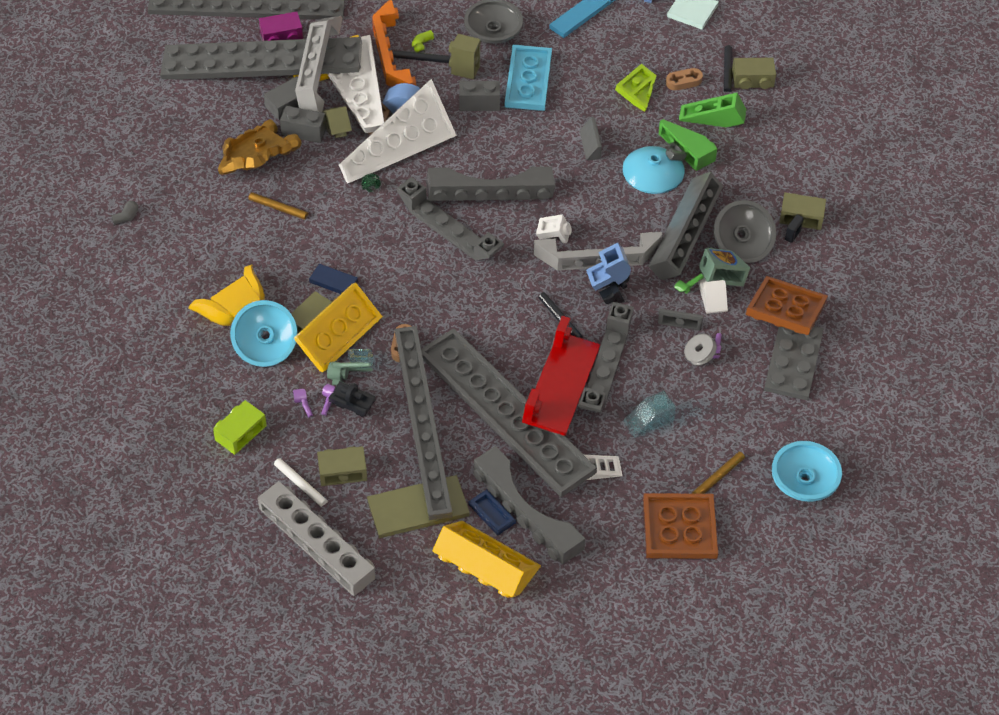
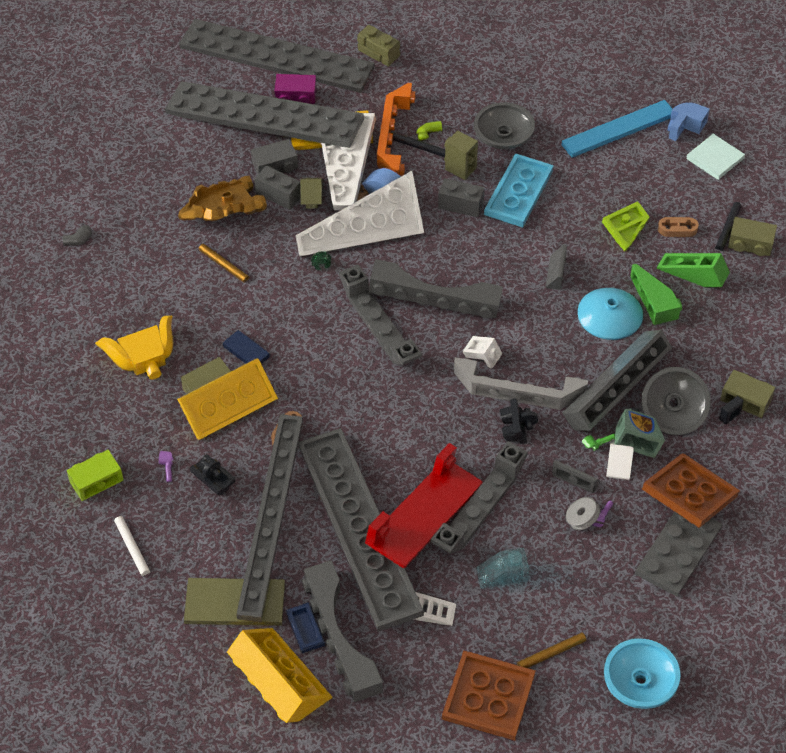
camera: 20 degrees right, 0 degrees up
(248, 330) = (140, 385): medium azure dish -> none
(313, 61) = (306, 126): light grey slope -> none
(327, 391) = (194, 459): medium lavender hand -> none
(338, 371) = (213, 444): sand green plant -> none
(342, 466) = (175, 540): olive brick -> none
(353, 578) = (141, 658): light grey brick -> none
(360, 355) = (238, 434): clear light blue plate -> none
(557, 313) = (453, 439): black bar -> none
(612, 268) = (516, 406): medium blue brick -> none
(675, 152) = (637, 301): dark grey tile -> none

